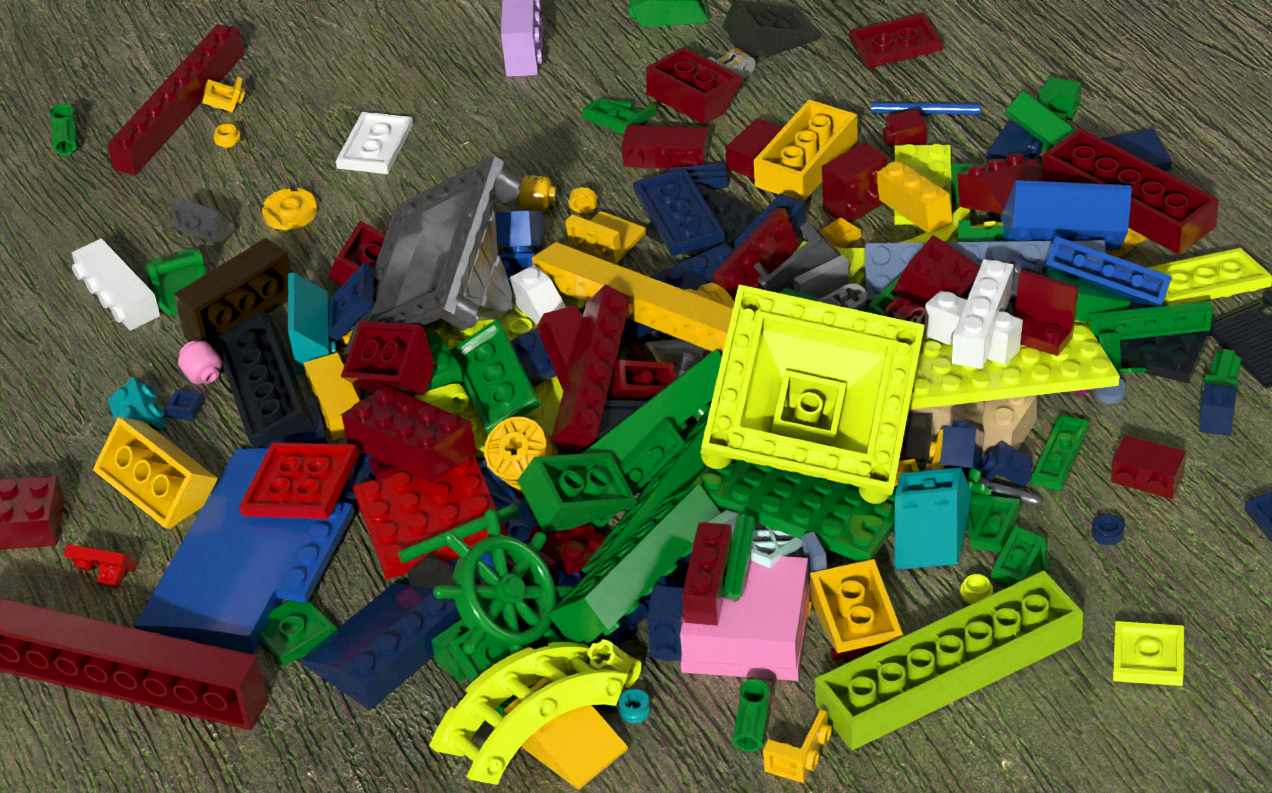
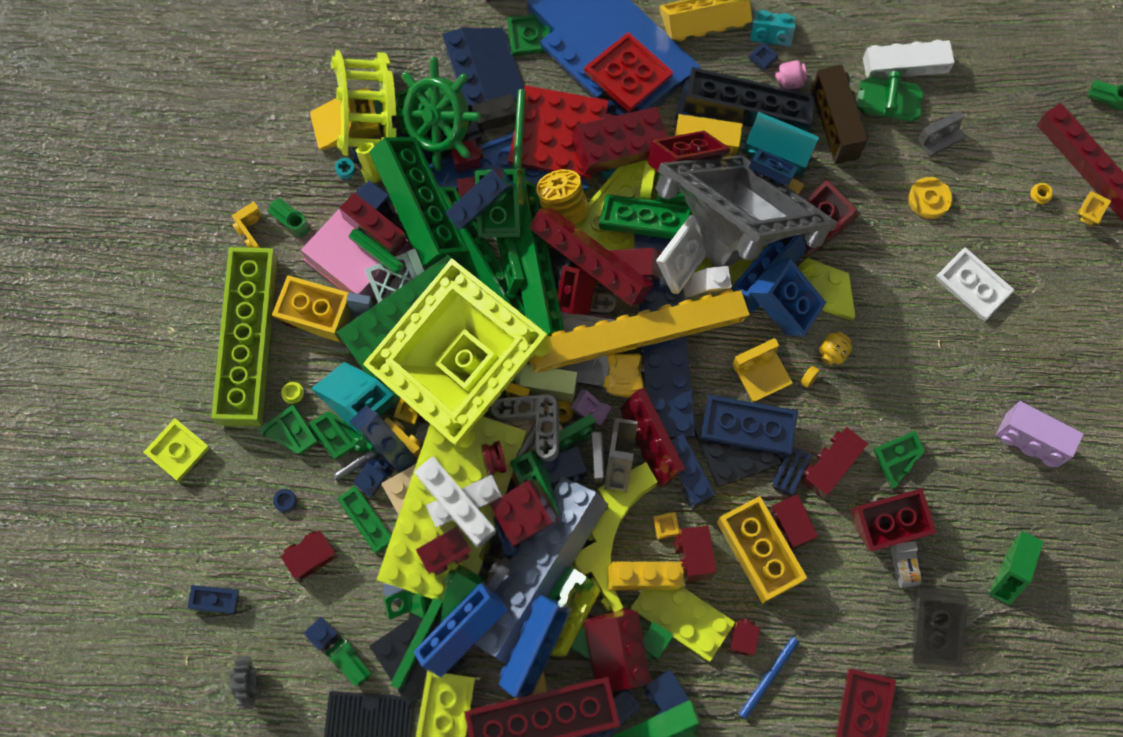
camera: 115 degrees right, 30 degrees up
(522, 310) = (682, 255): none -> white tile
(595, 483) = (480, 198): none -> dark blue brick

